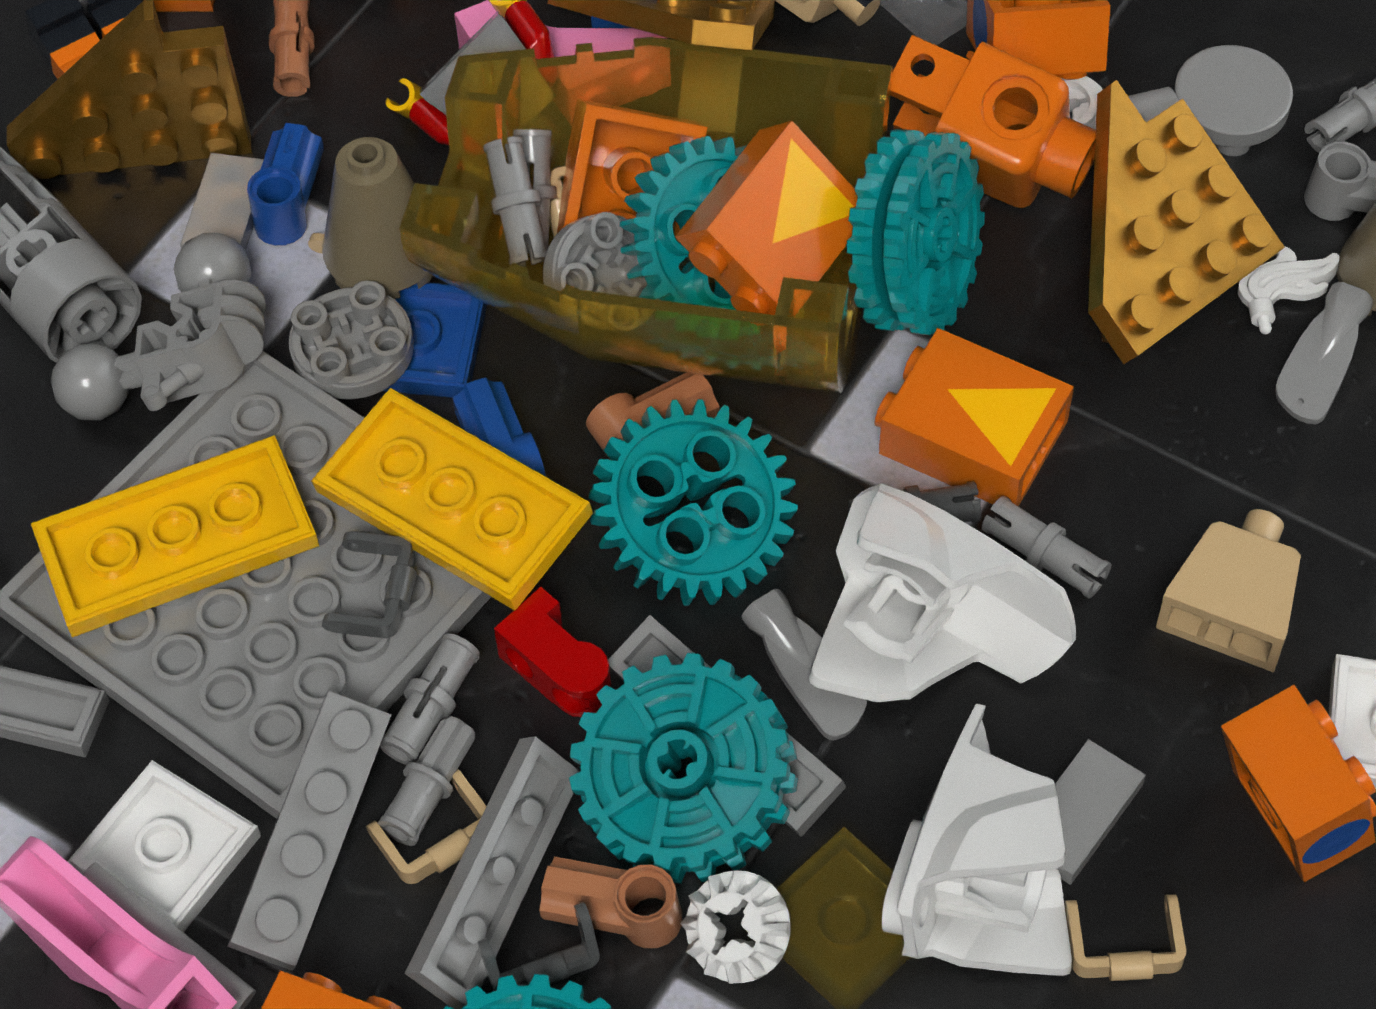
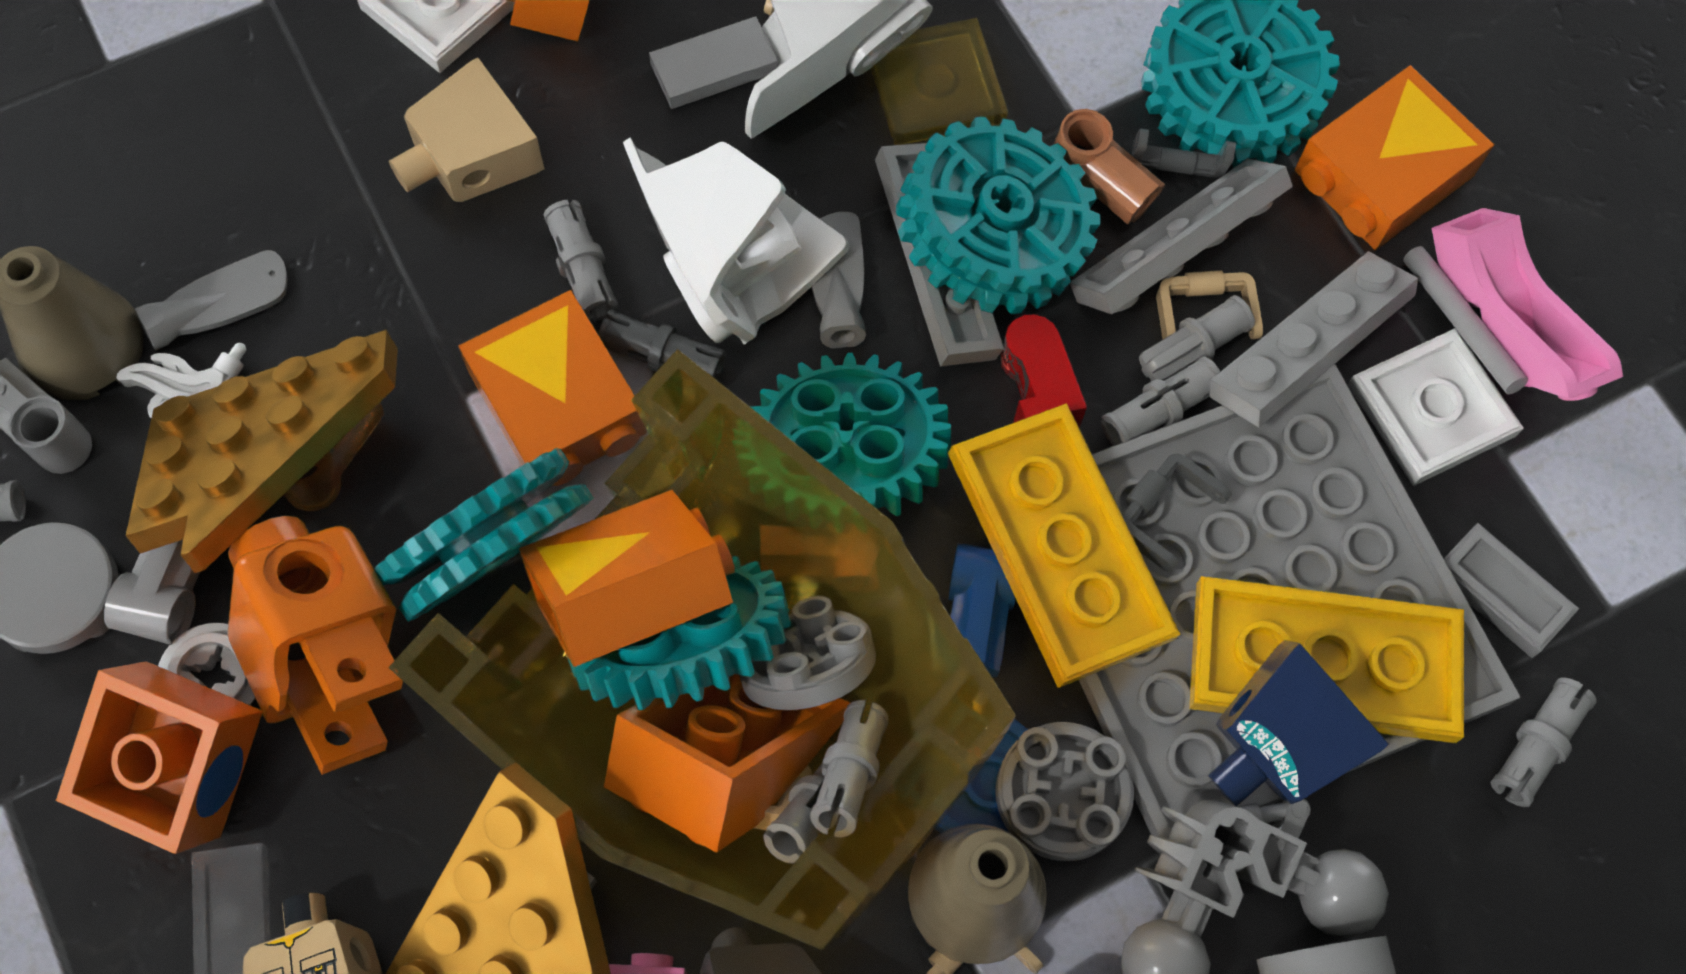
camera: 155 degrees left, 10 degrees up
(176, 434) = (1291, 730): none -> dark blue torso
(764, 920) = (1023, 97): white gear -> none

